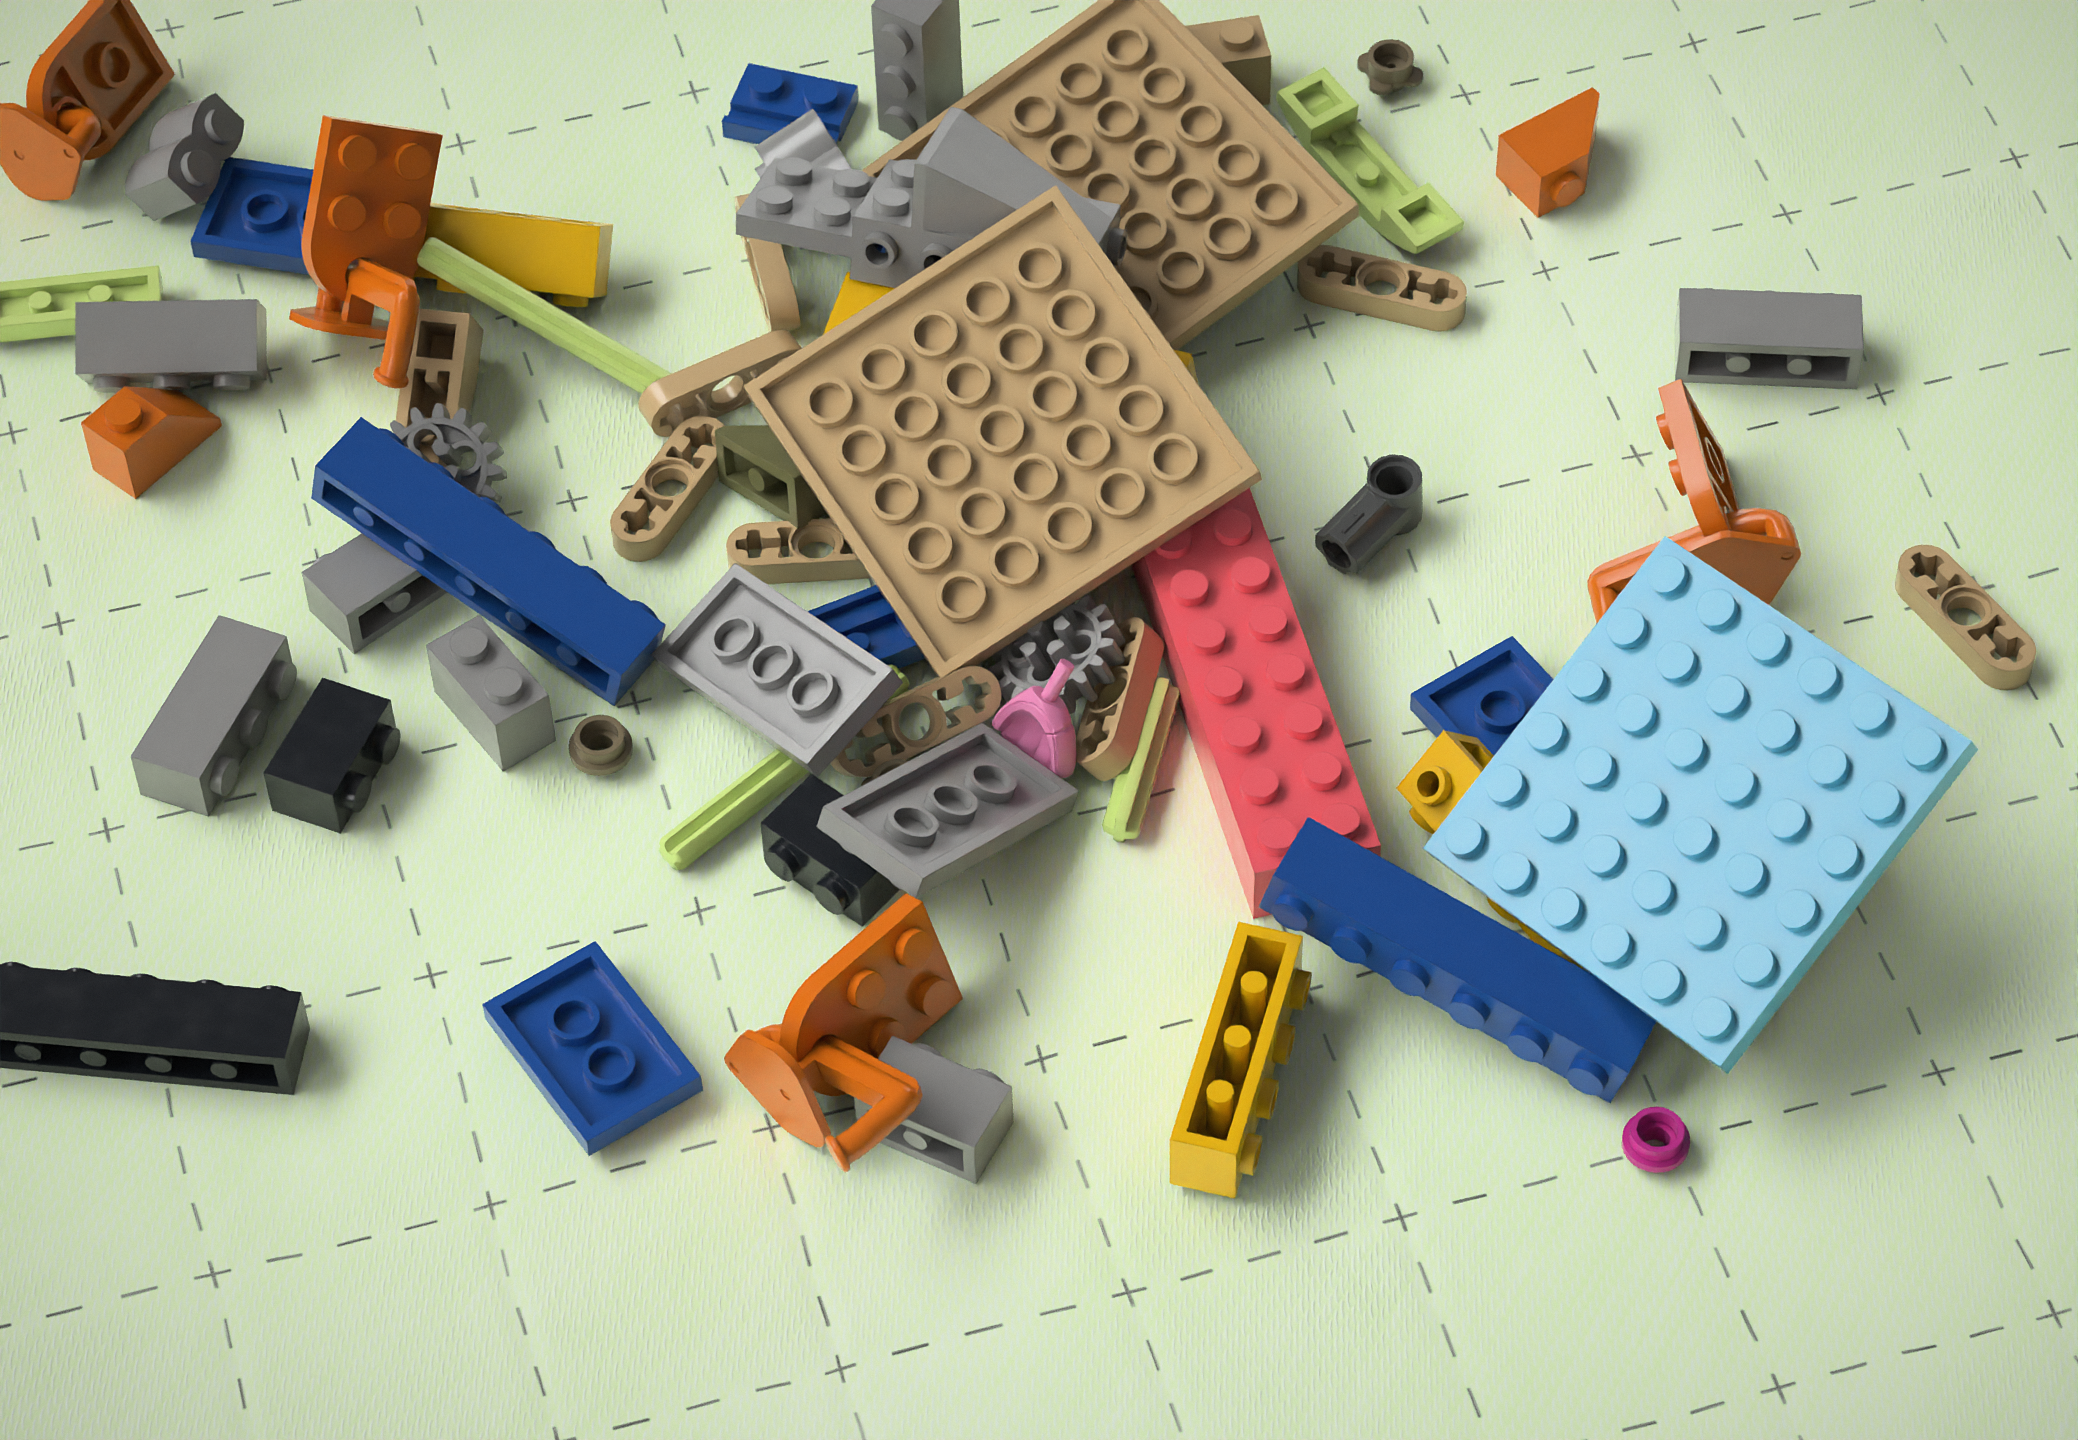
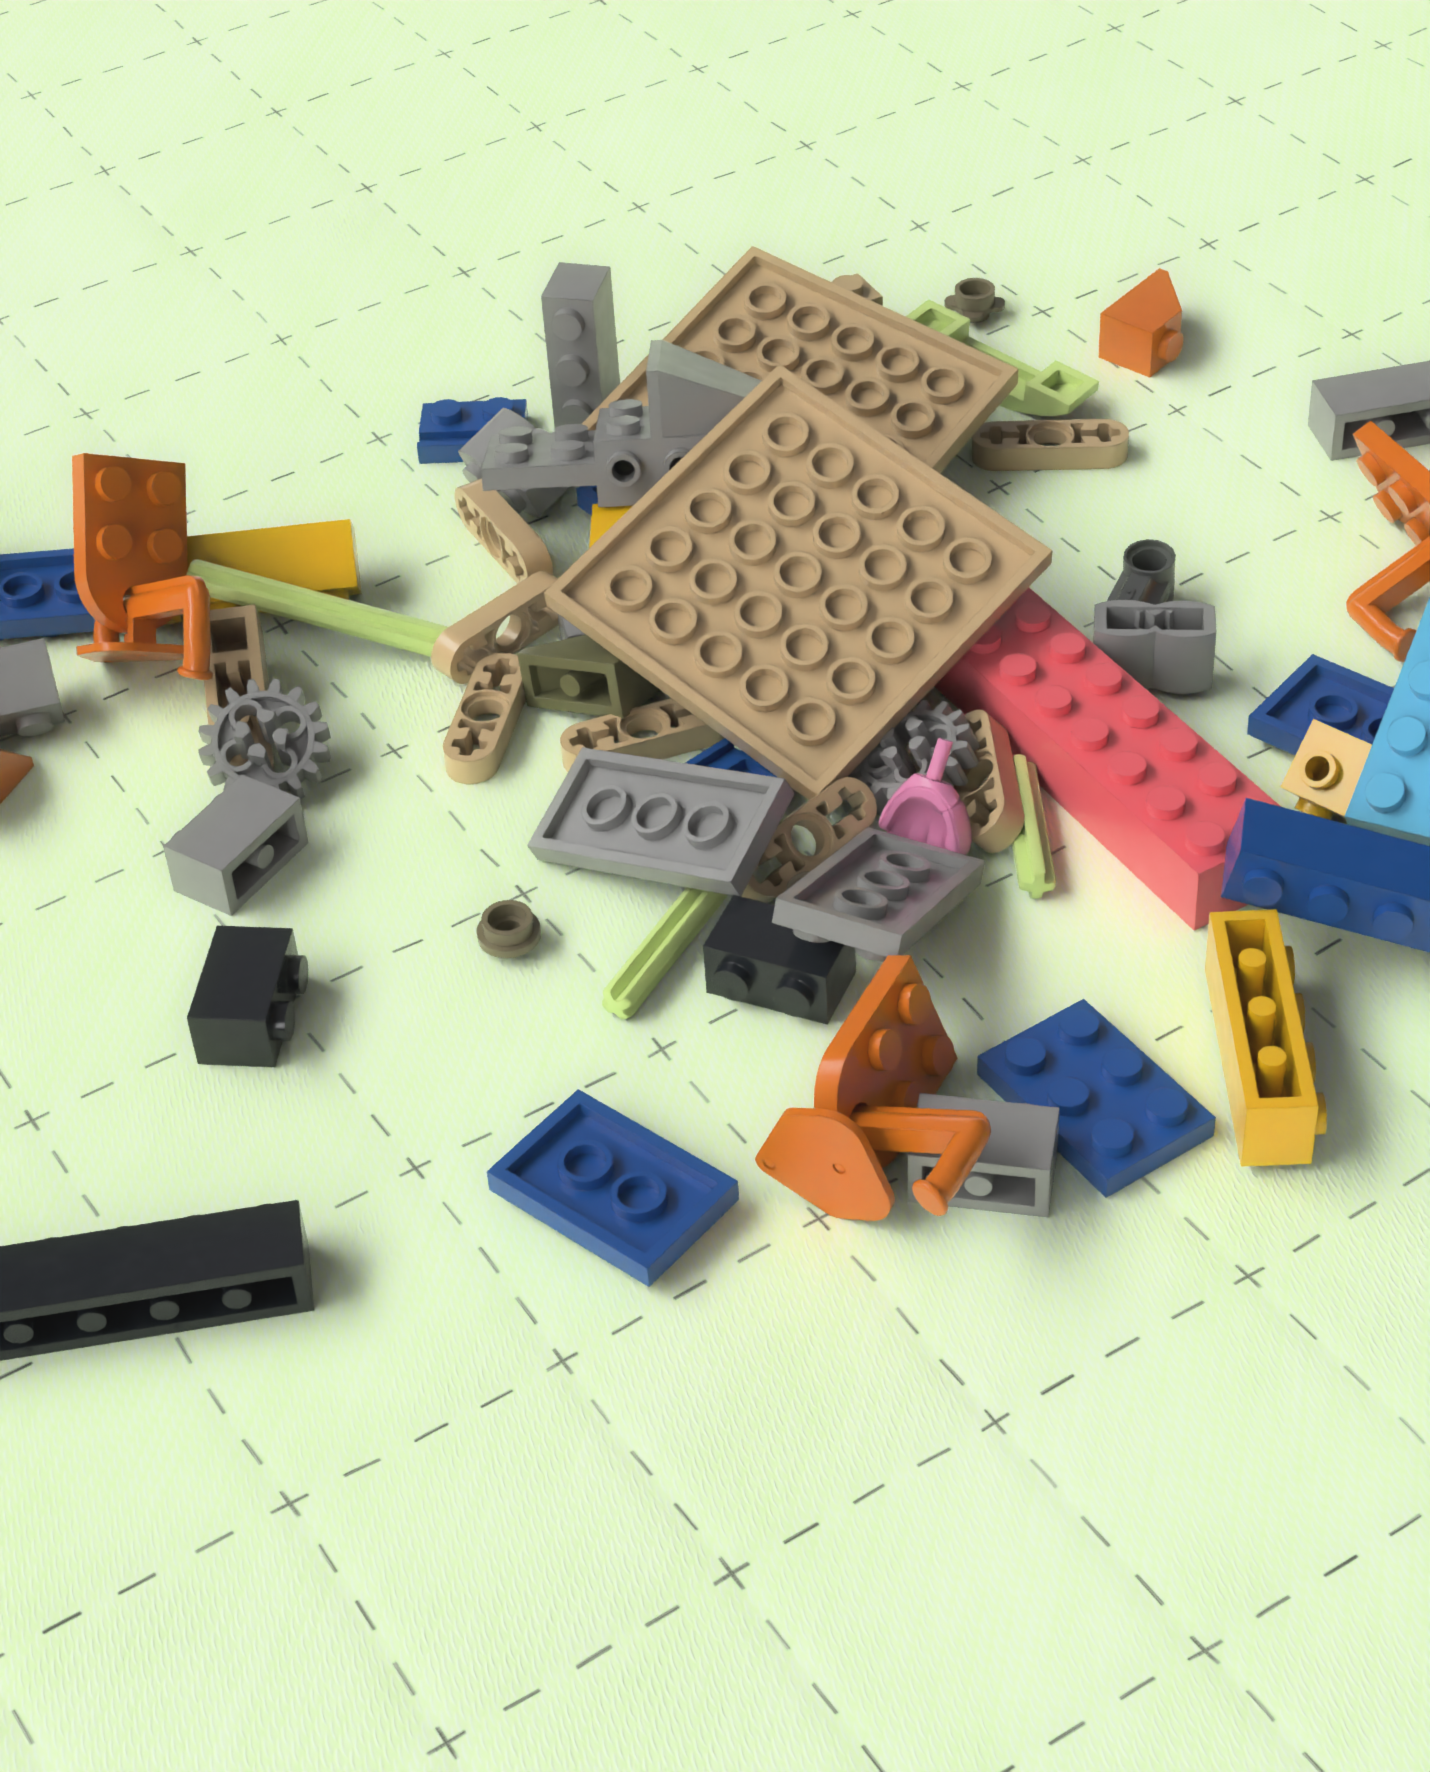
camera: 15 degrees left, 10 degrees down
(214, 716) = (113, 991): light grey brick -> none
(487, 560) = (344, 793): blue brick -> none
(491, 693) = (386, 907): light grey brick -> none
(1071, 1074) = (1113, 1101): none -> blue plate
(1351, 587) = (1159, 644): none -> light grey brick

